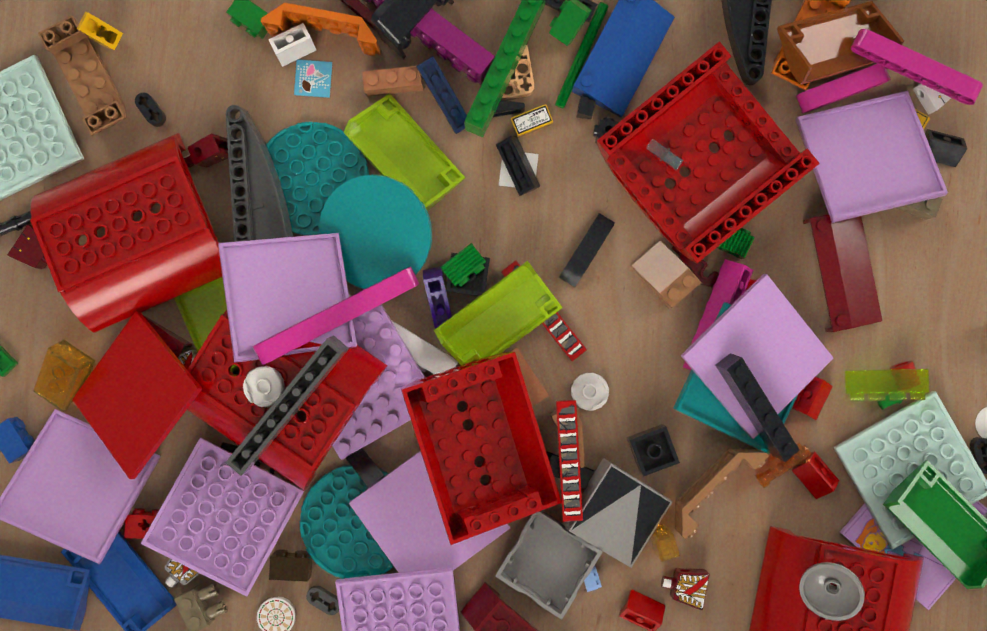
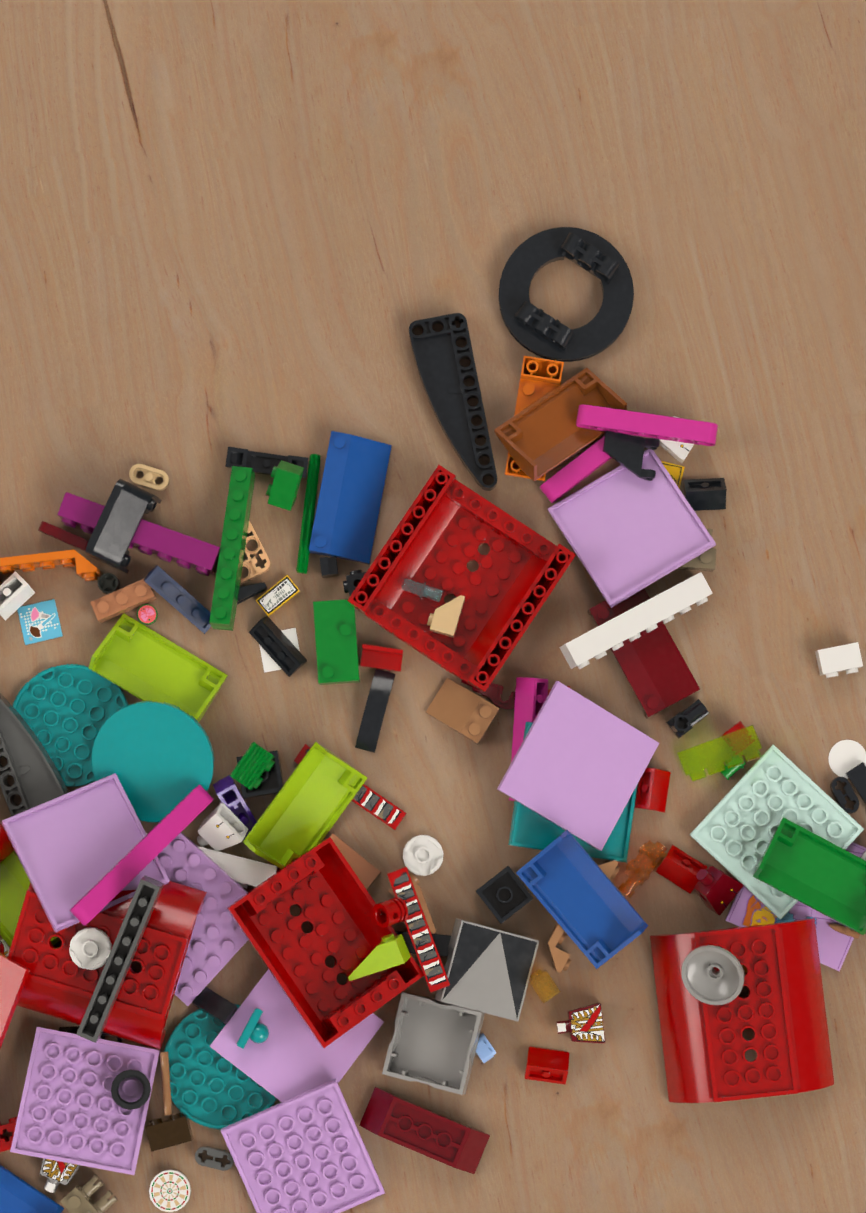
camera: 15 degrees left, 5 degrees down
(271, 534) = (146, 1089): none -> black tyre
(300, 522) = (166, 1089): none -> medium nougat bar
(384, 58) = (108, 583): none -> pearl dark grey wheel
(392, 502) = (255, 1031): none -> teal tile
(410, 101) = (147, 614): none -> tile
(418, 313) = (221, 829): none -> white torso
(532, 475) = (386, 954): none -> lime slope
(550, 438) = (392, 912): none -> red piece
(572, 177) = (336, 642): none -> green brick
(608, 204) = (381, 658): none -> red panel
(679, 185) = (446, 617): none -> tan slope
(727, 480) = (582, 899): none -> blue slope
(738, 243) = (524, 656): green brick -> none
(757, 407) = (591, 817): black brick -> none
(844, 505) = (716, 888): none -> dark red torso
(850, 241) = (636, 620): none -> white brick
(865, 344) = (683, 721): none -> black piece
(890, 88) = (629, 452): none -> black flag
(946, 576) = (844, 930): none -> medium nougat helmet

